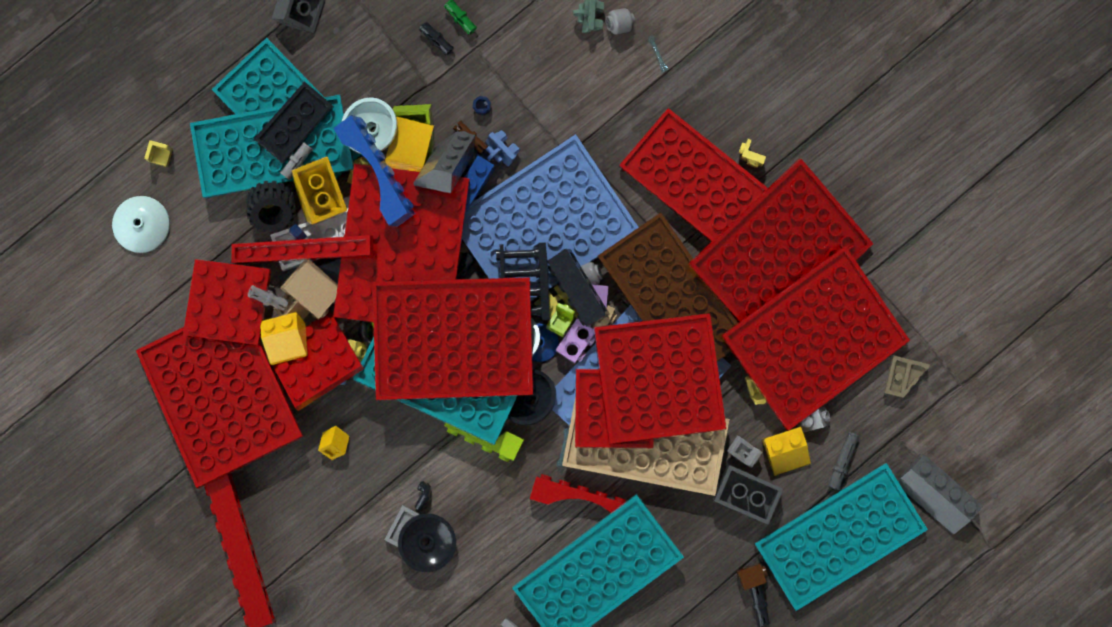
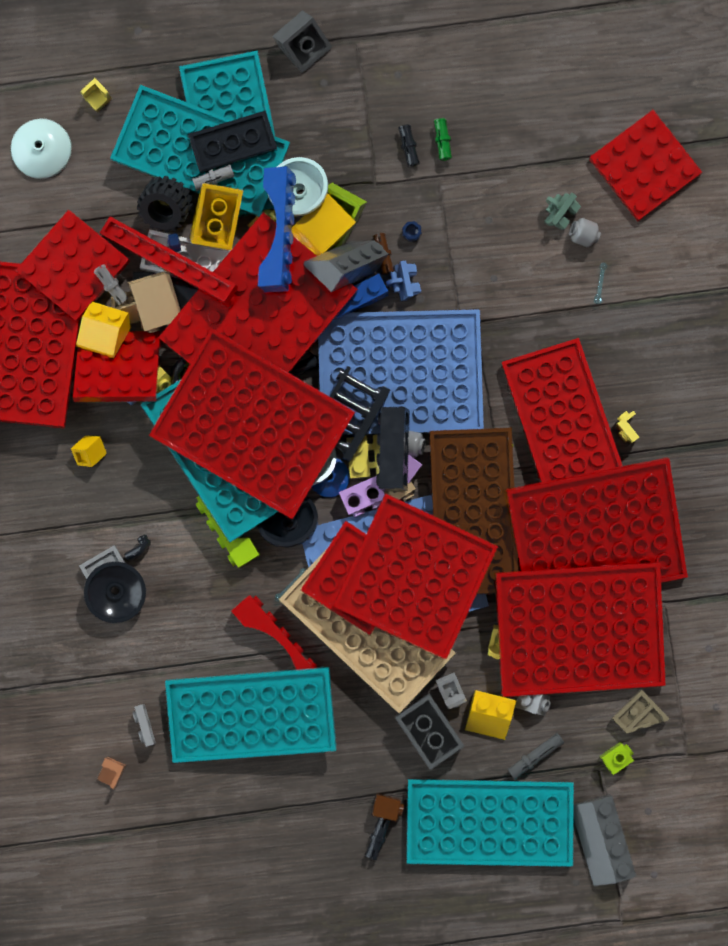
camera: 30 degrees right, 0 degrees up
(561, 319) = (361, 468): lime bracket -> none
(908, 421) = (617, 757): none -> lime brick

